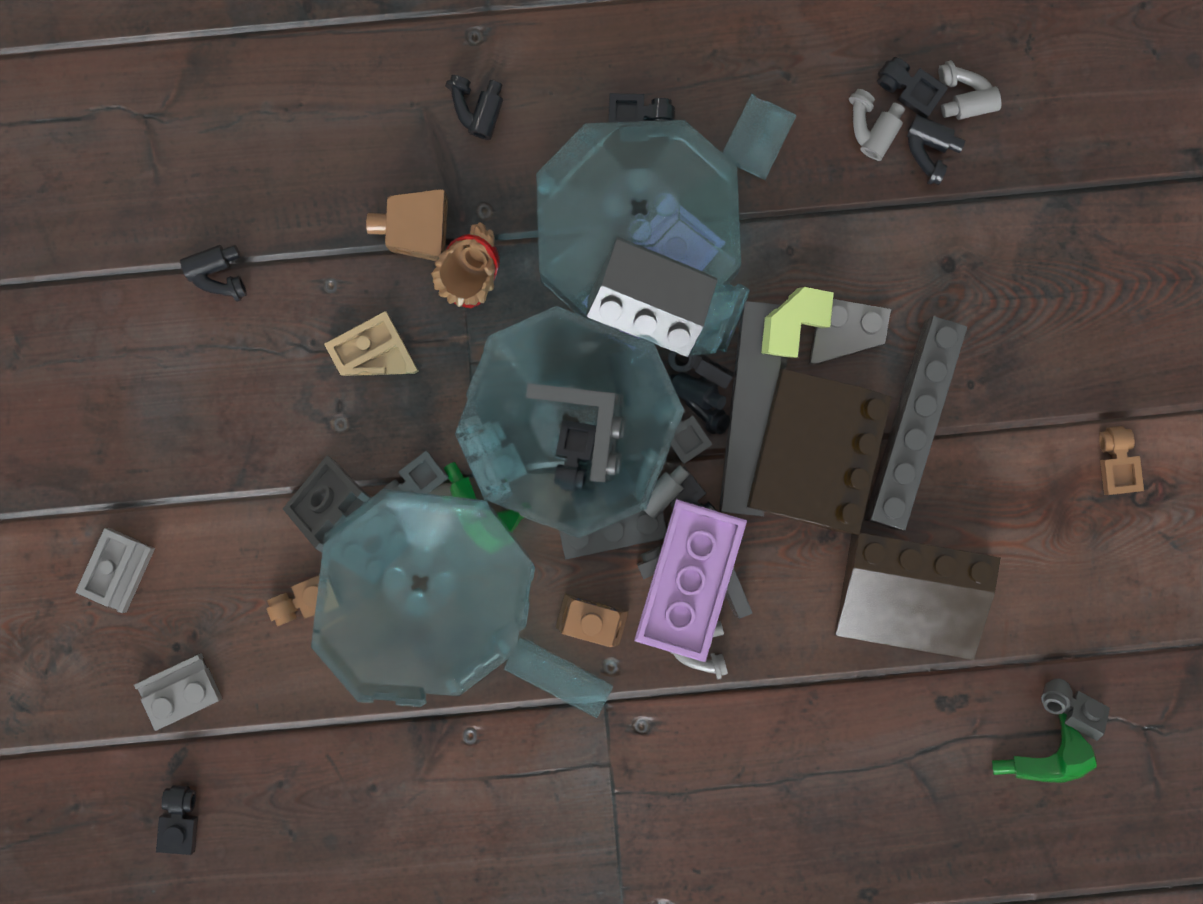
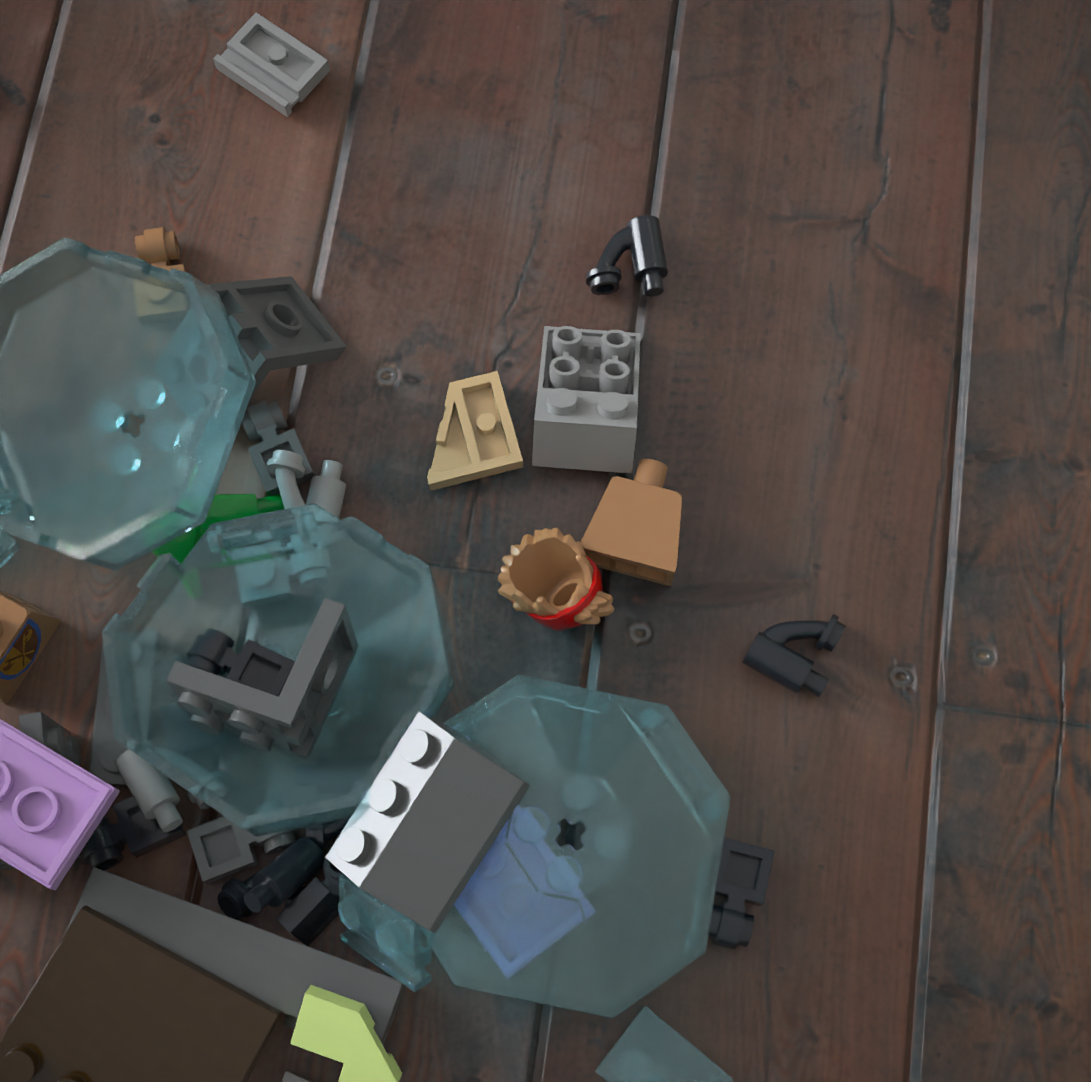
camera: 95 degrees right, 15 degrees down
(178, 692) = (94, 107): light grey plate -> none
(328, 278) = (587, 400): none -> light grey slope
(438, 440) = (324, 489): none -> light grey plant

